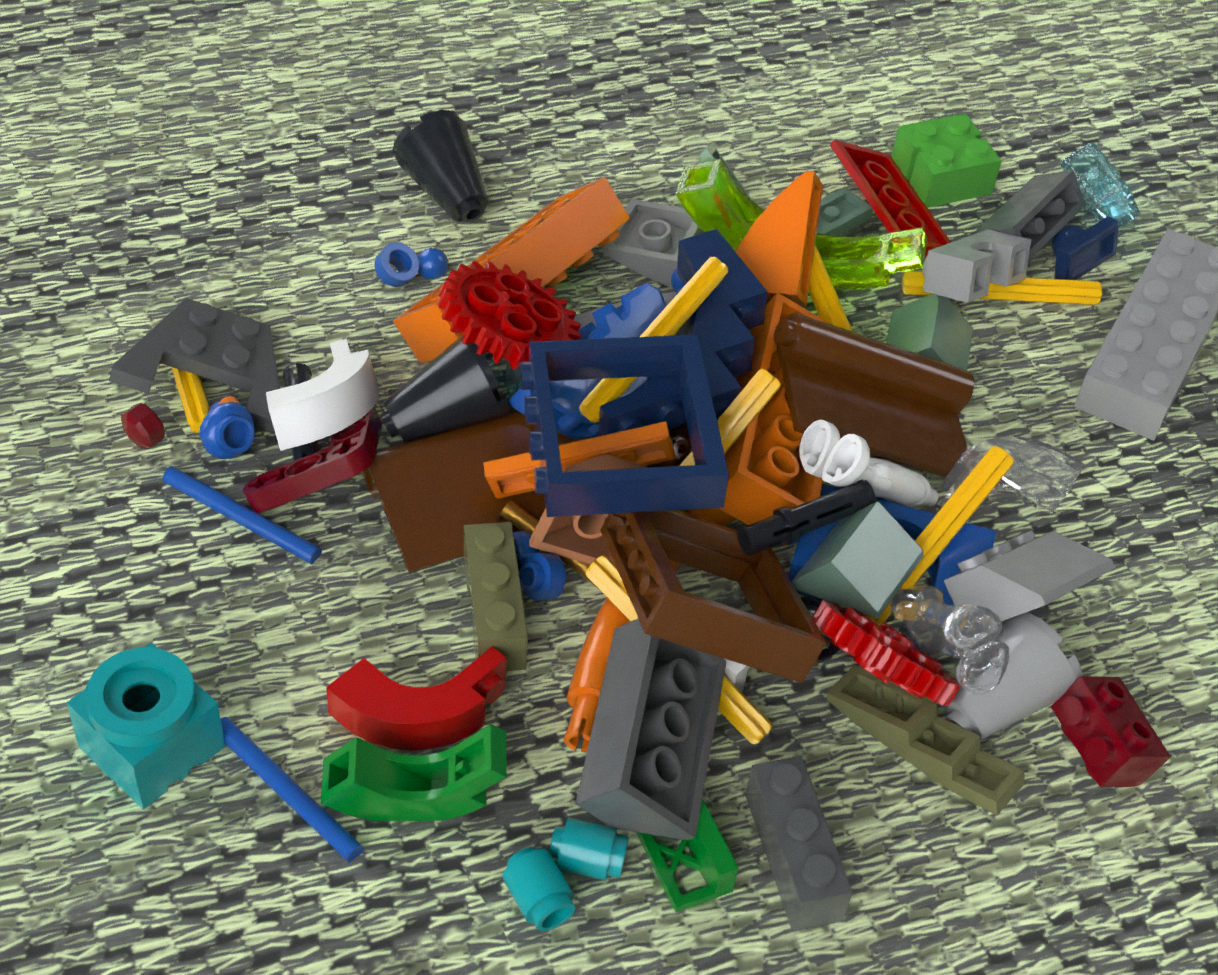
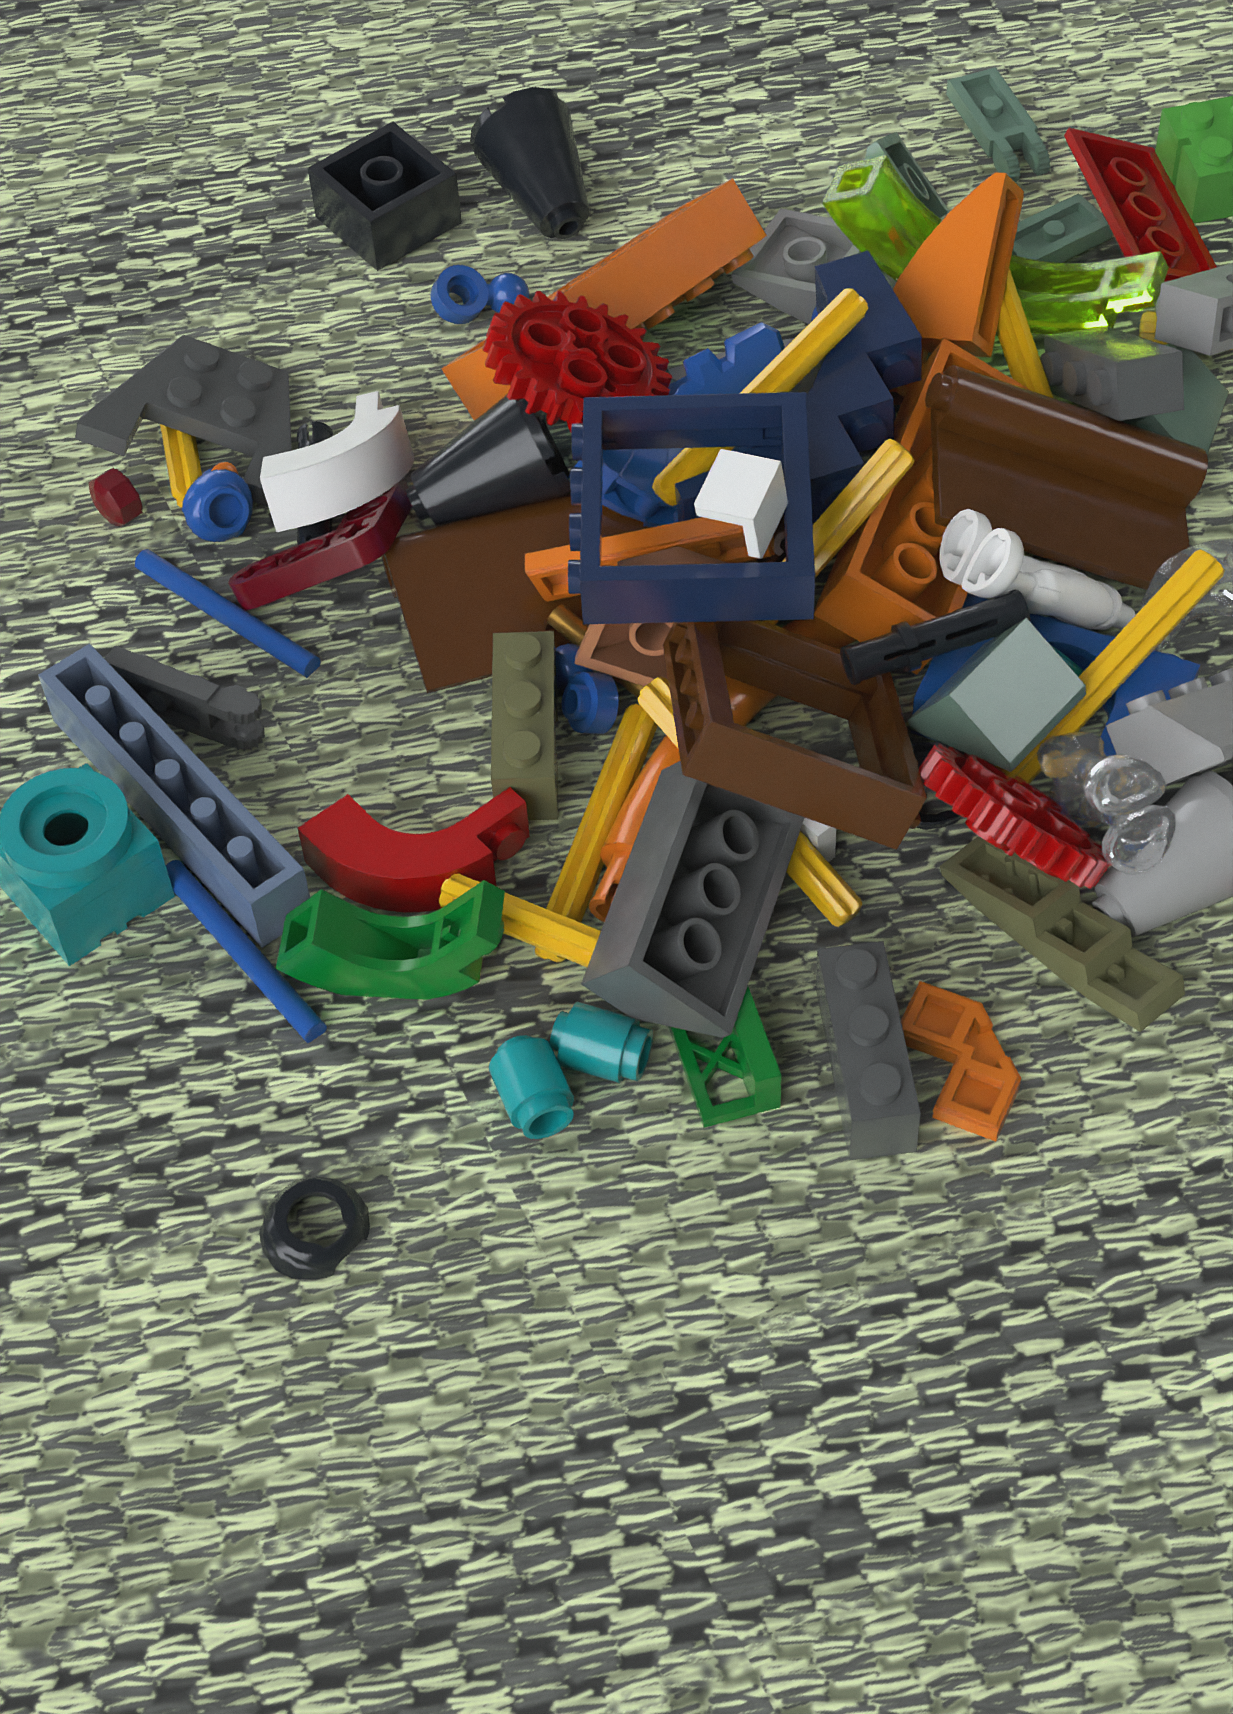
camera: 15 degrees right, 5 degrees up
(217, 586) = (192, 701): none -> dark grey hinge
(223, 663) = (175, 793): none -> sand blue brick
(331, 190) = (385, 195): none -> black brick
(527, 756) = (534, 923): none -> yellow axle
(557, 680) = (611, 789): none -> yellow axle
(670, 412) = (745, 493): none -> white panel
(778, 136) = (998, 121): none -> sand green hinge
(884, 860) = (982, 1077): none -> orange tile
(901, 316) = (1114, 372): none -> dark grey brick

